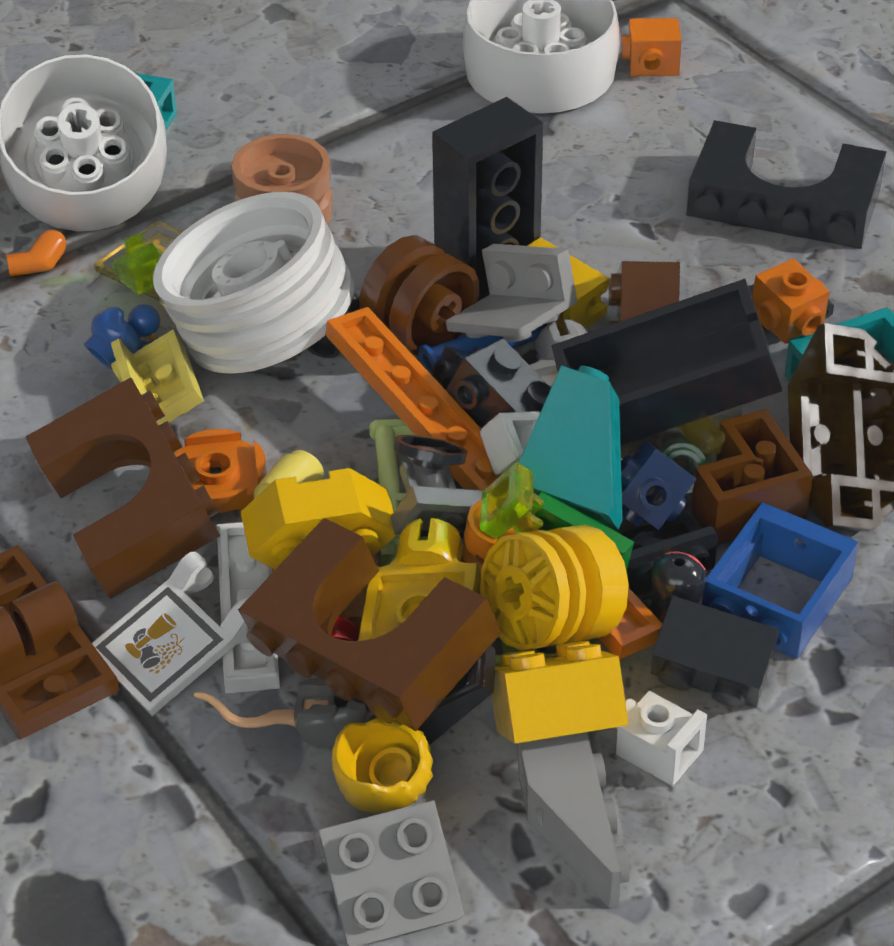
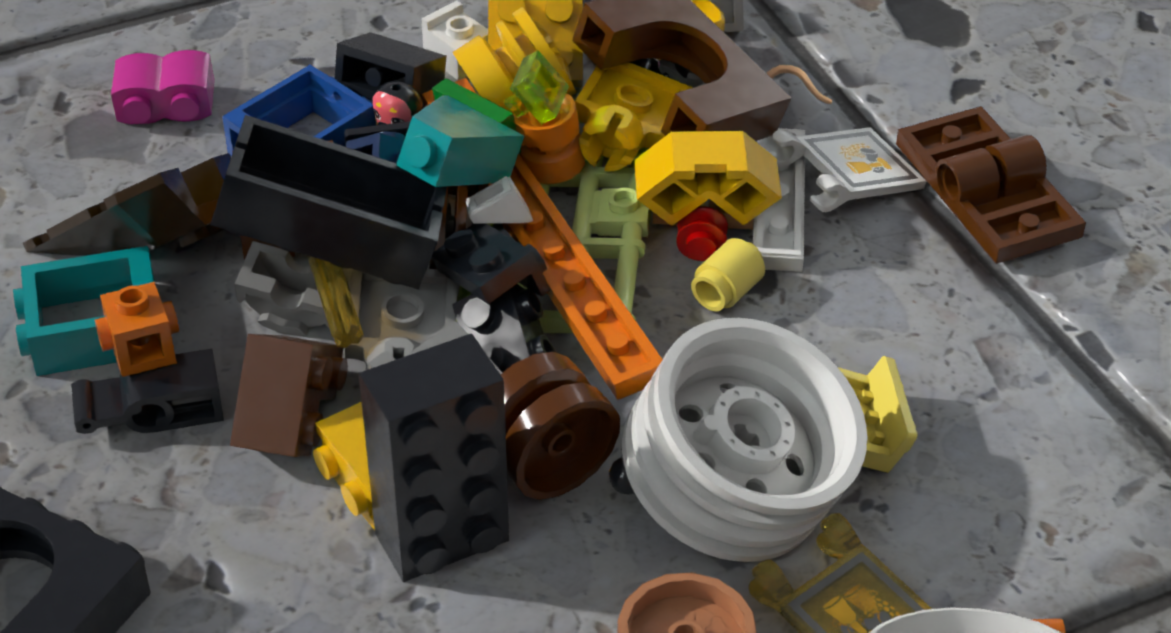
camera: 170 degrees left, 0 degrees up
(110, 325) = (907, 473): blue animal -> none
(138, 264) = (878, 571): clear neon green tile -> none
(164, 516) = (890, 317): reddish brown arch -> none
(240, 463) = (827, 305): orange plate -> none
(431, 485) = (587, 170): dark grey piece -> none

